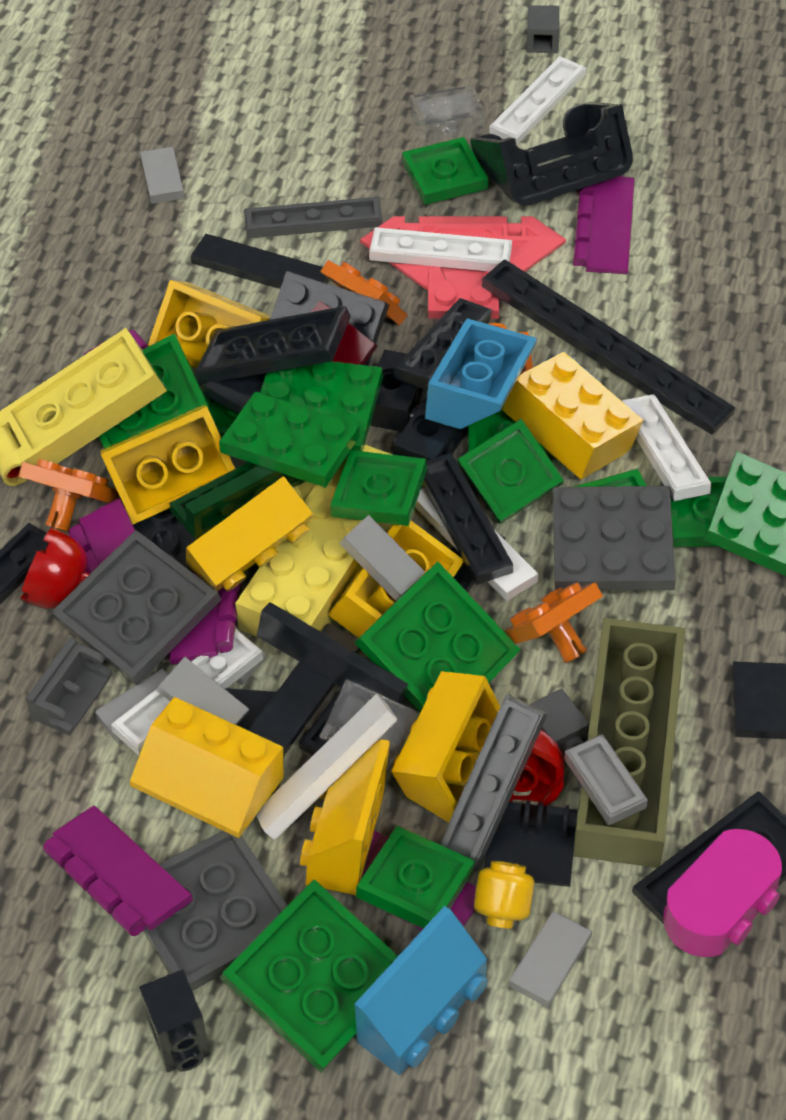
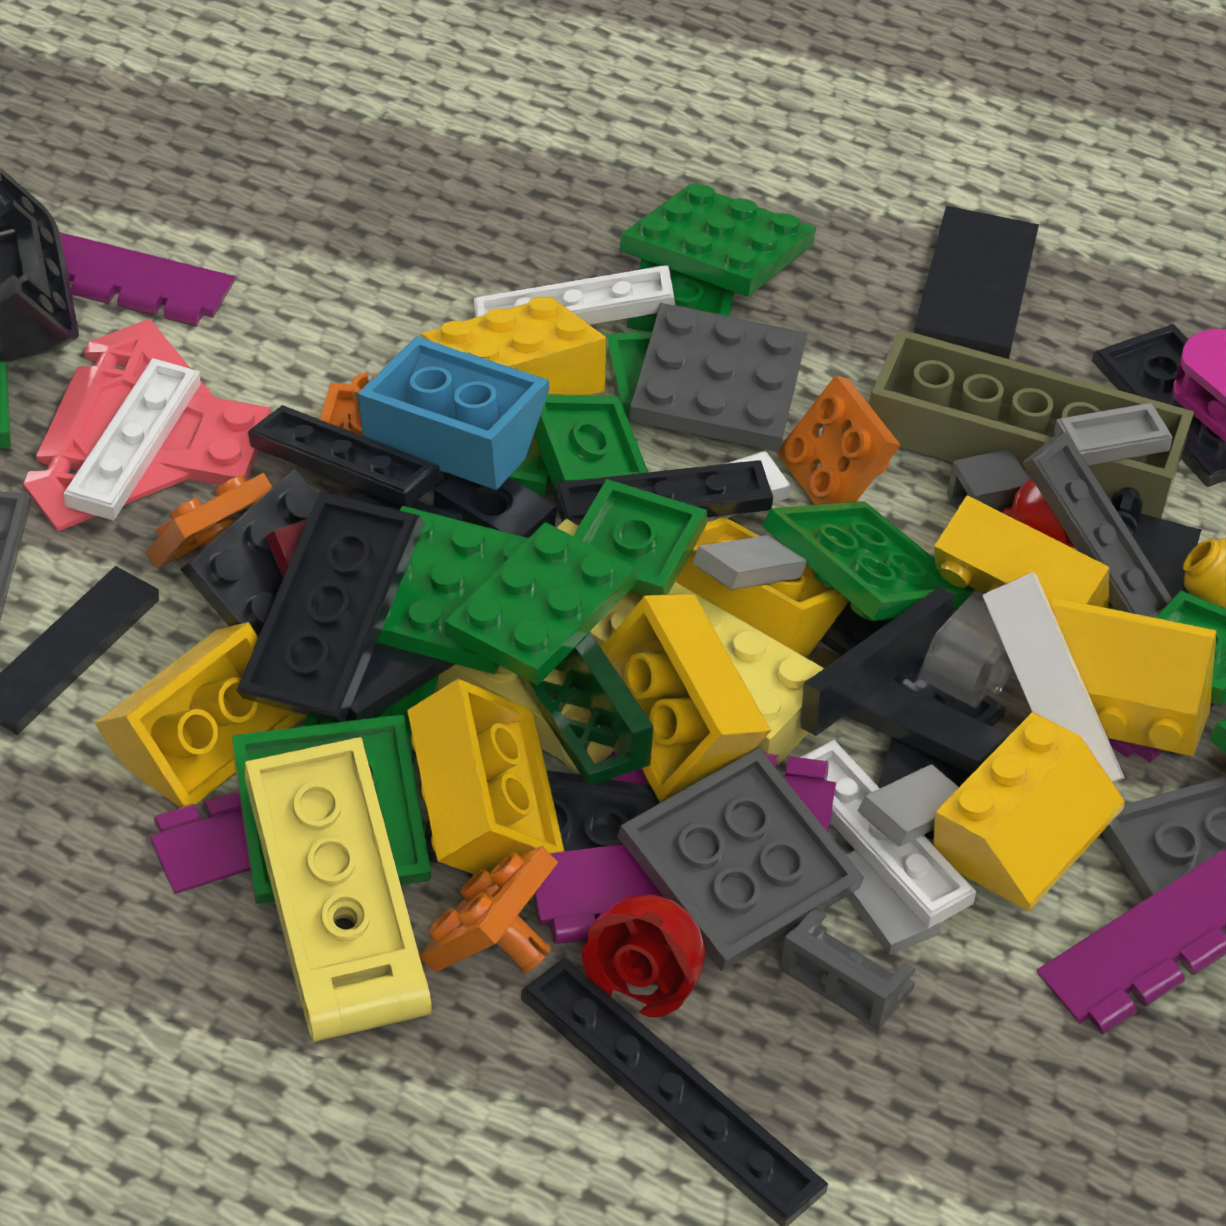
camera: 85 degrees left, 5 degrees down
(608, 347) = (370, 322): black tile -> none

